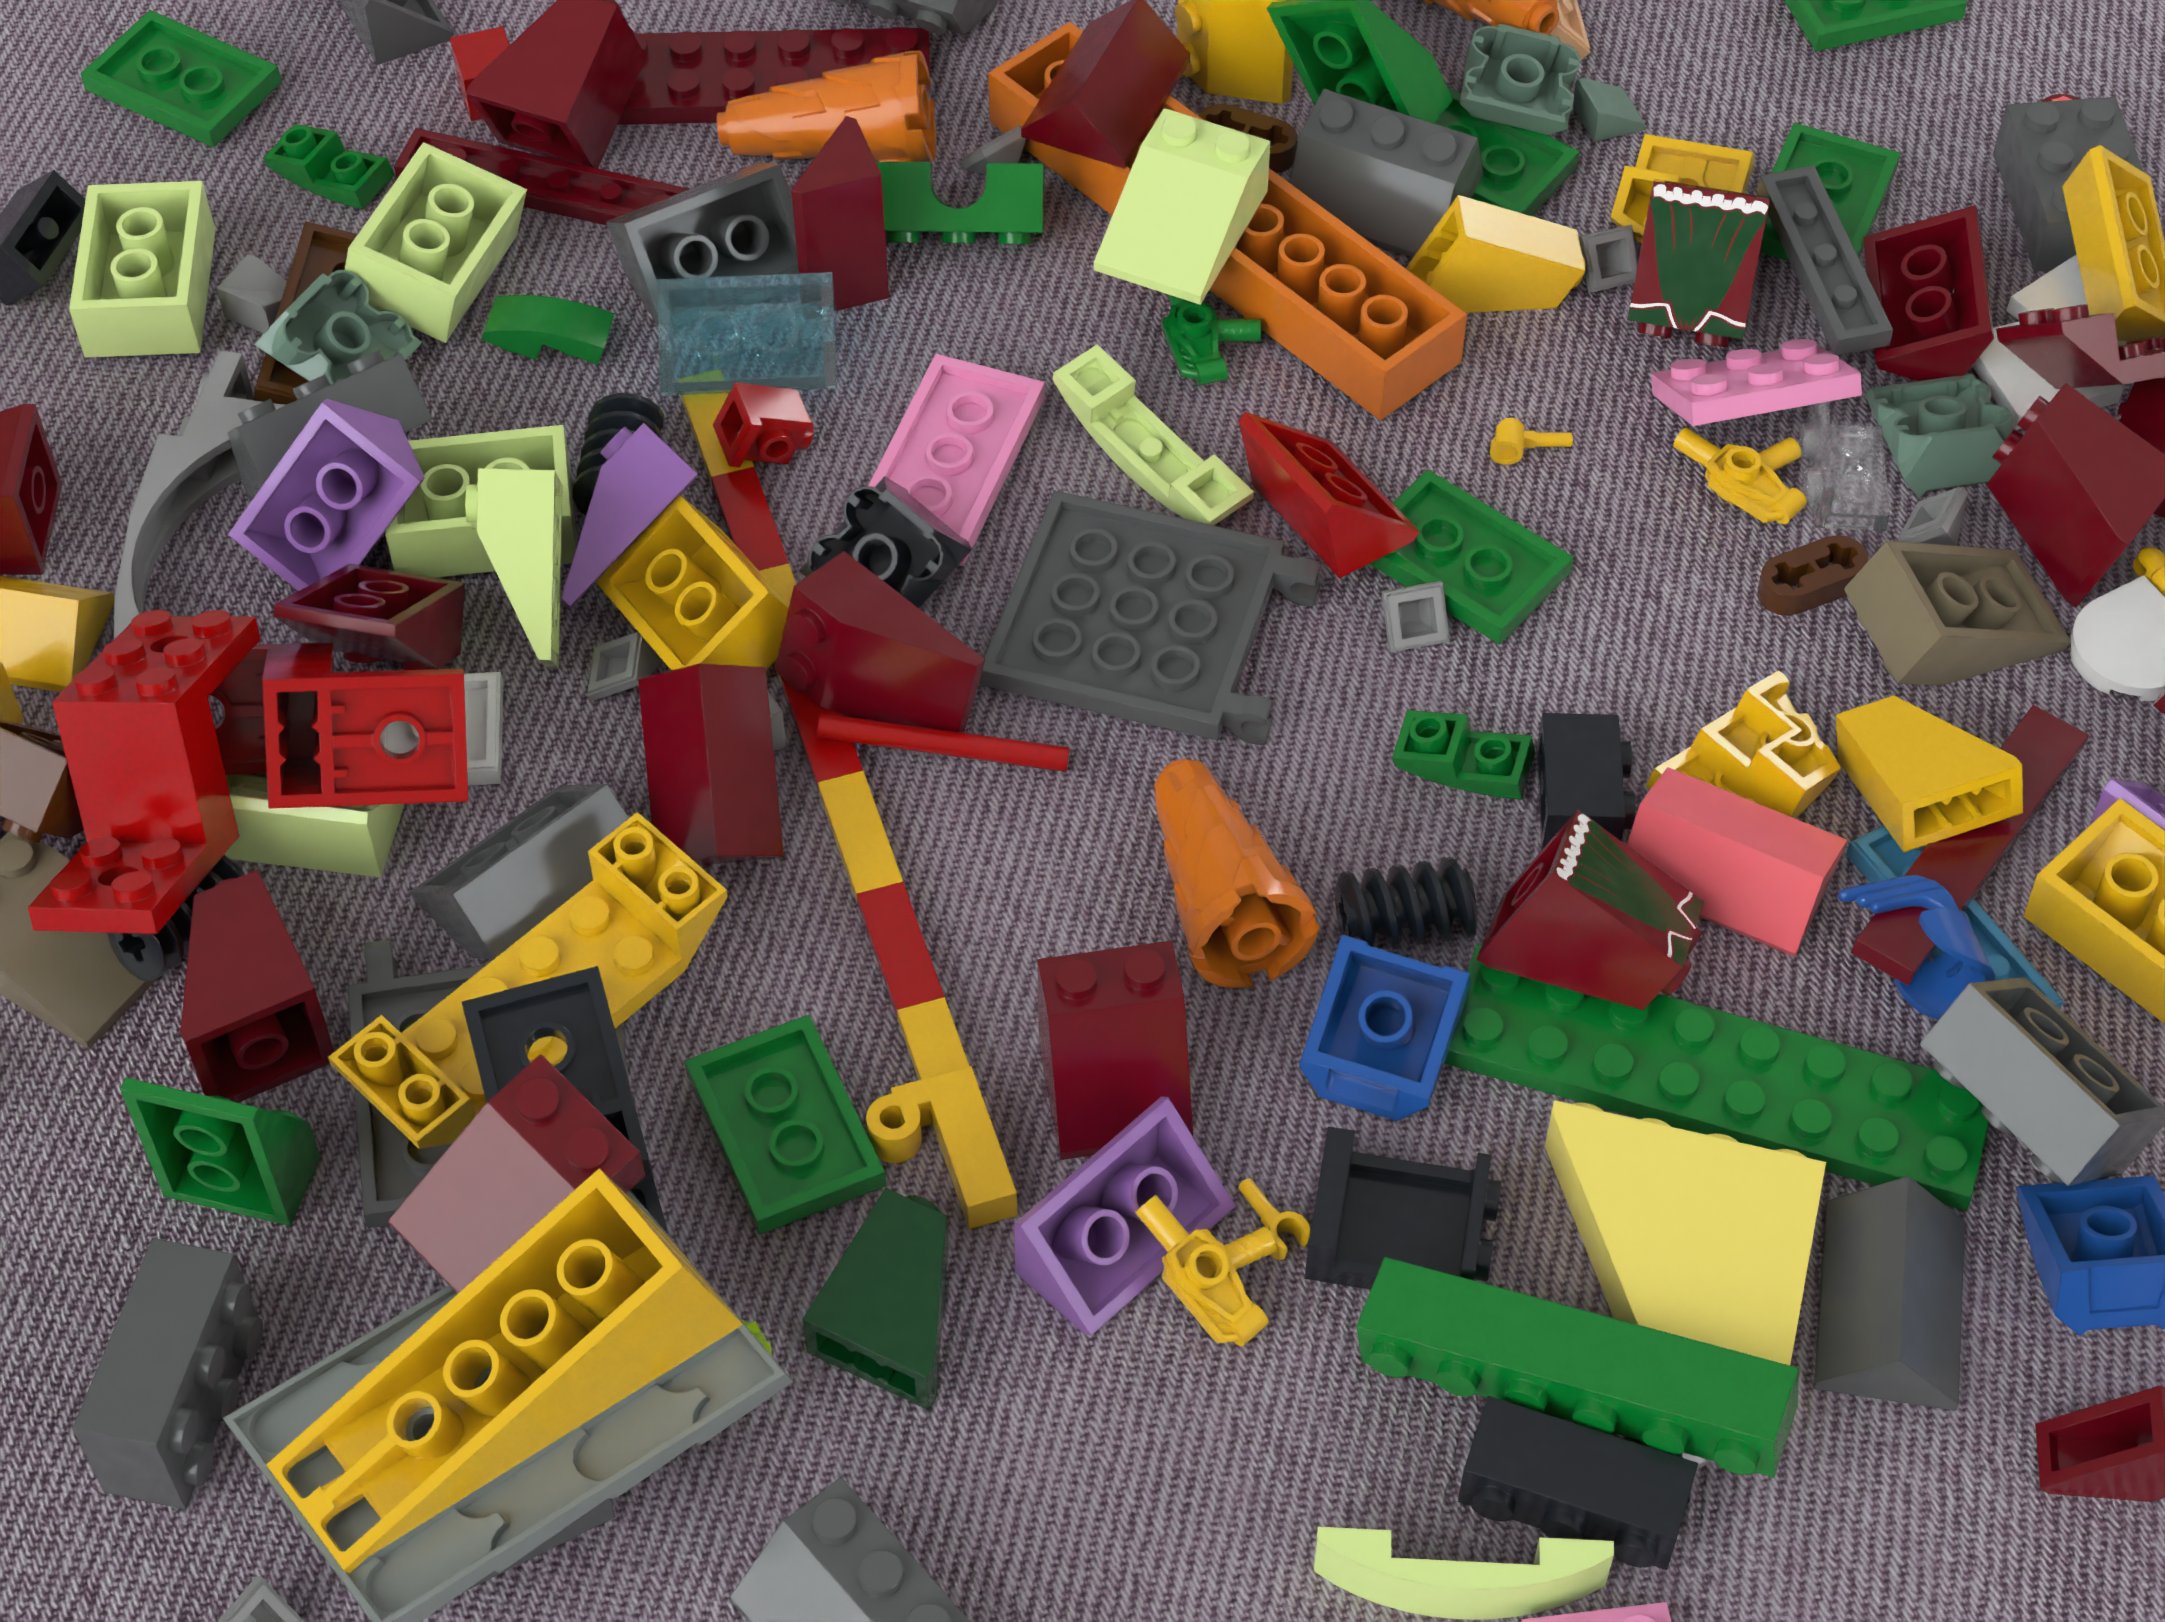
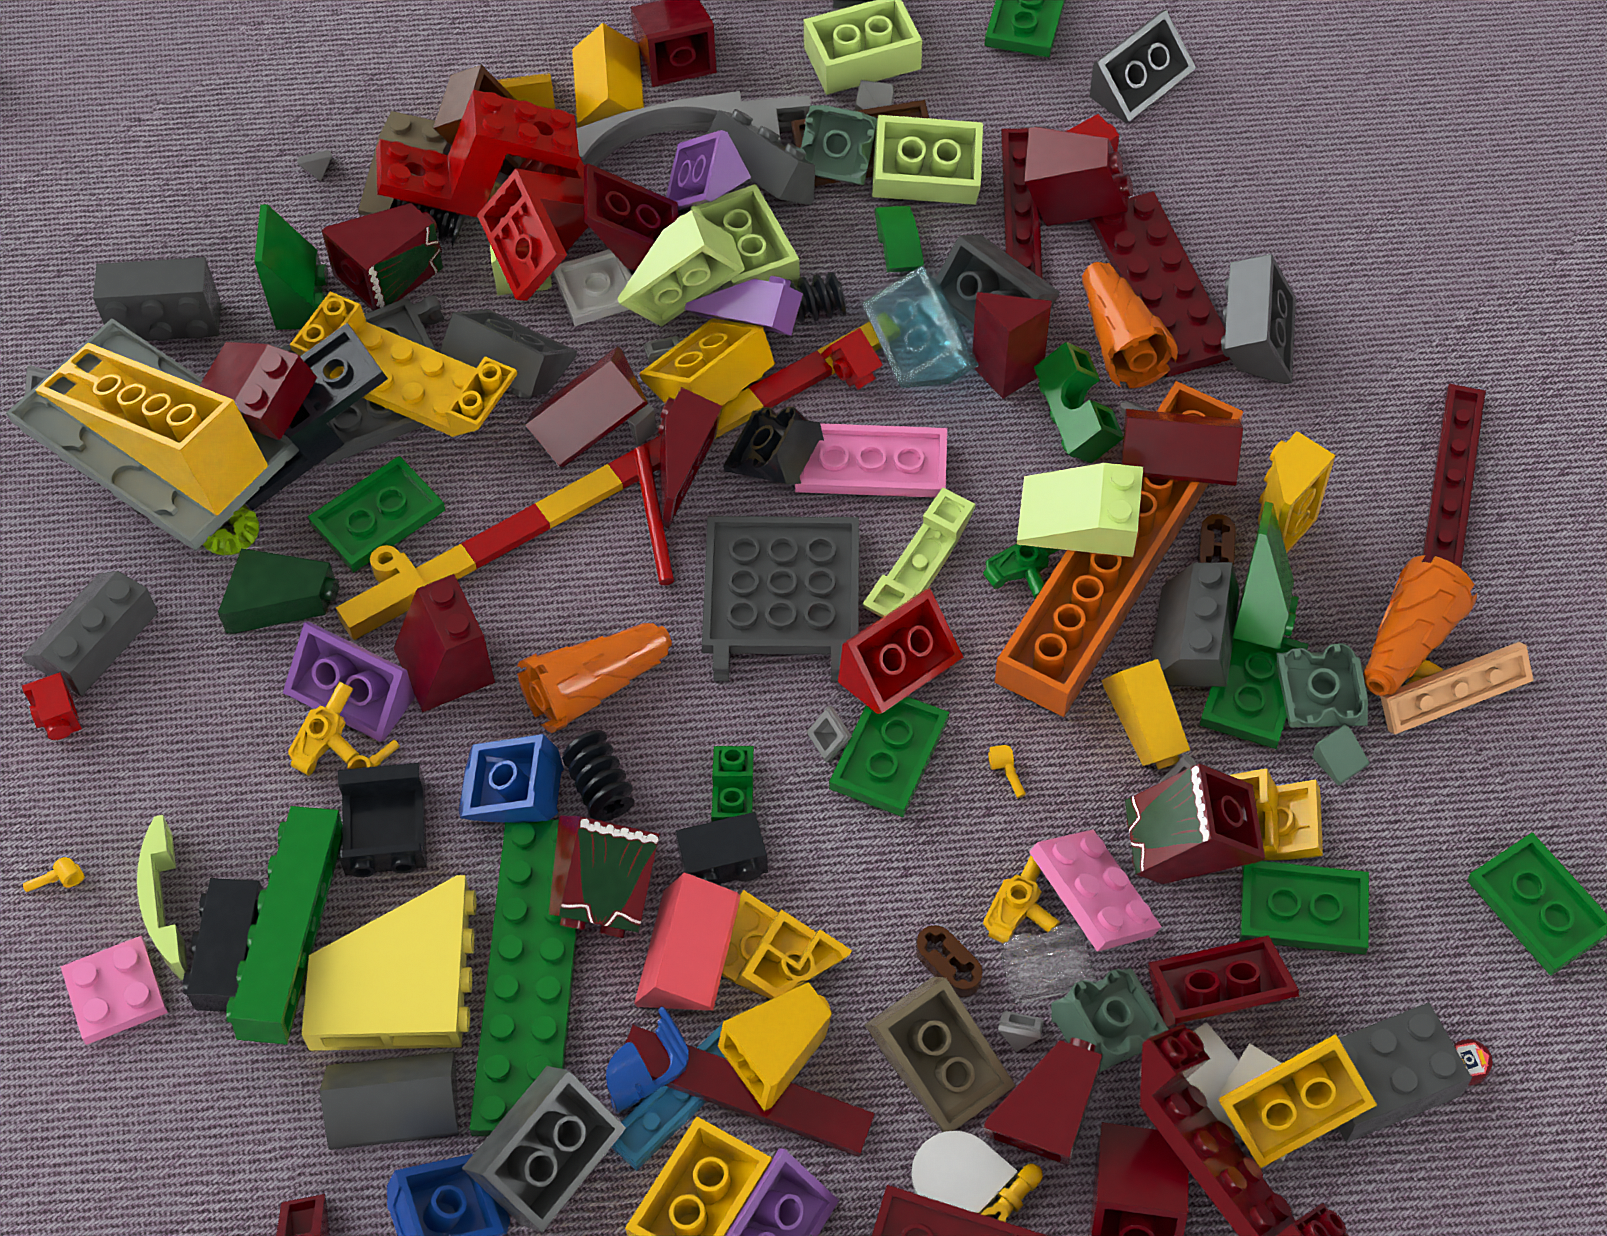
camera: 75 degrees right, 5 degrees up
(323, 166) = (991, 99): green slope -> none
(1825, 261) = (1221, 907): dark grey plate -> none

